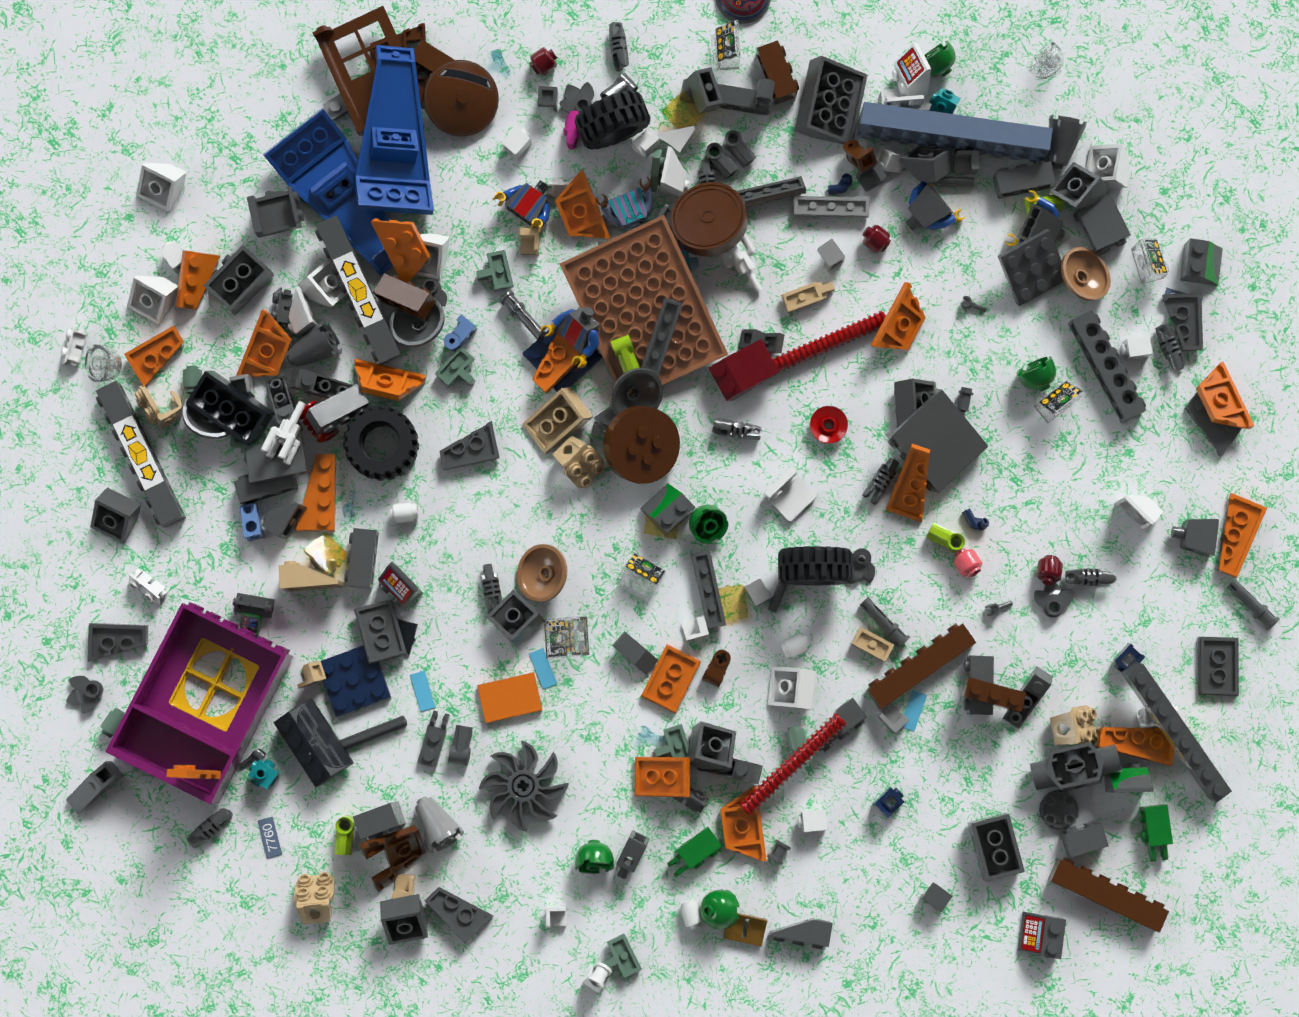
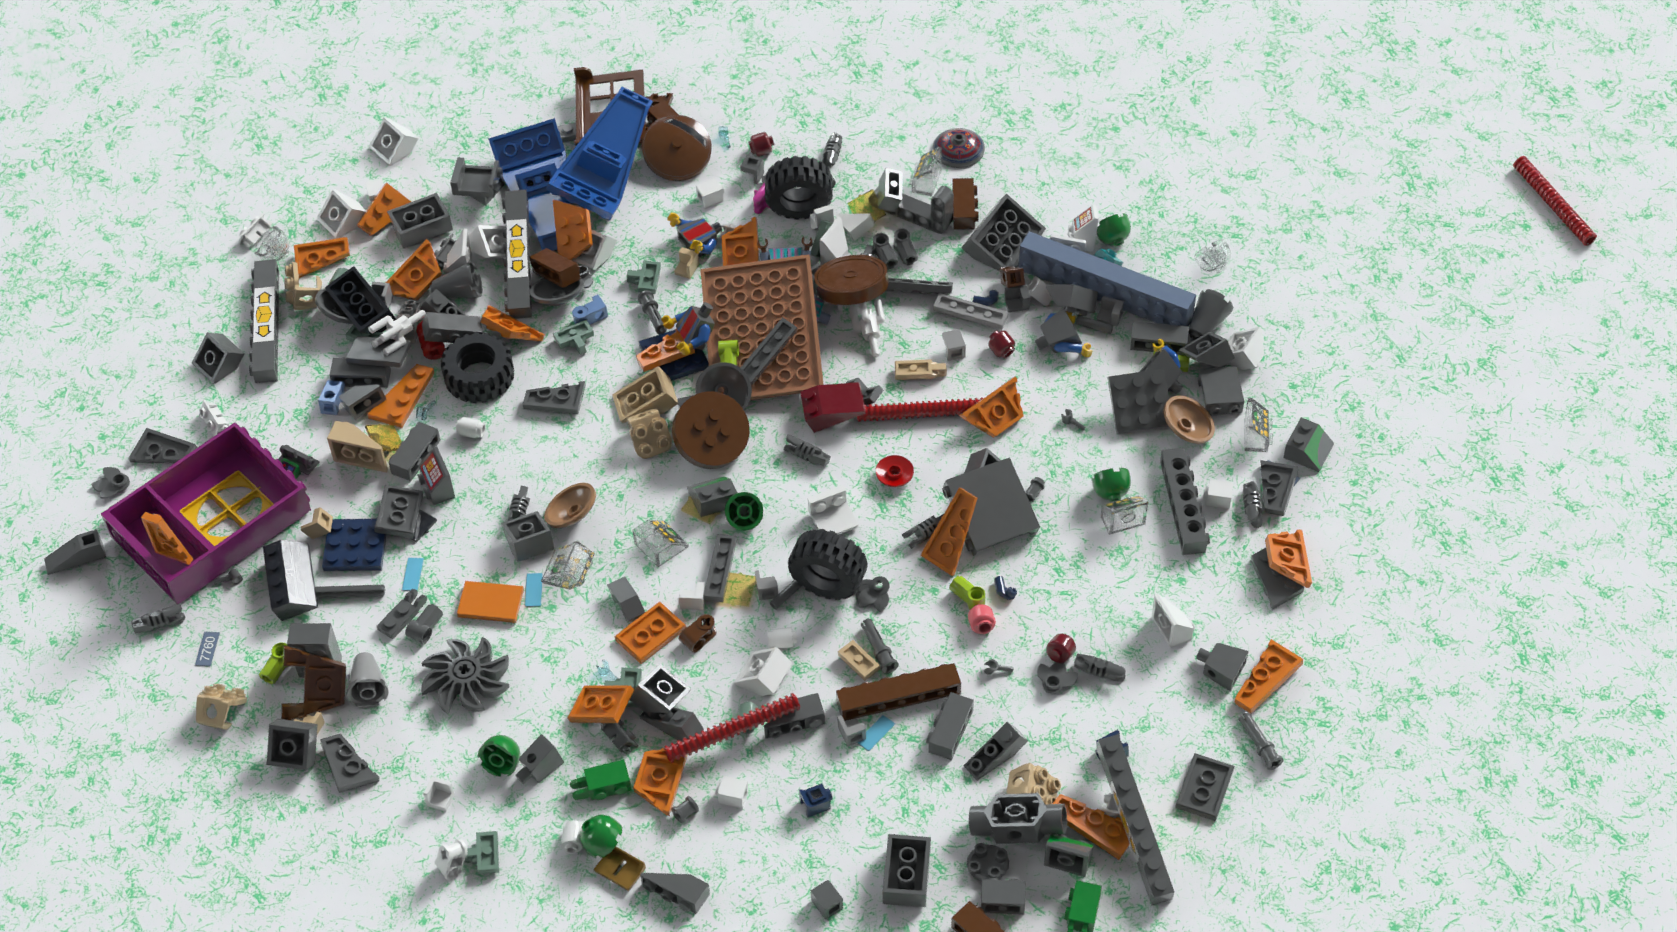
camera: 20 degrees right, 30 degrees down
(270, 773) = (231, 589): teal brick -> none
(993, 694) = (957, 725): reddish brown brick -> none

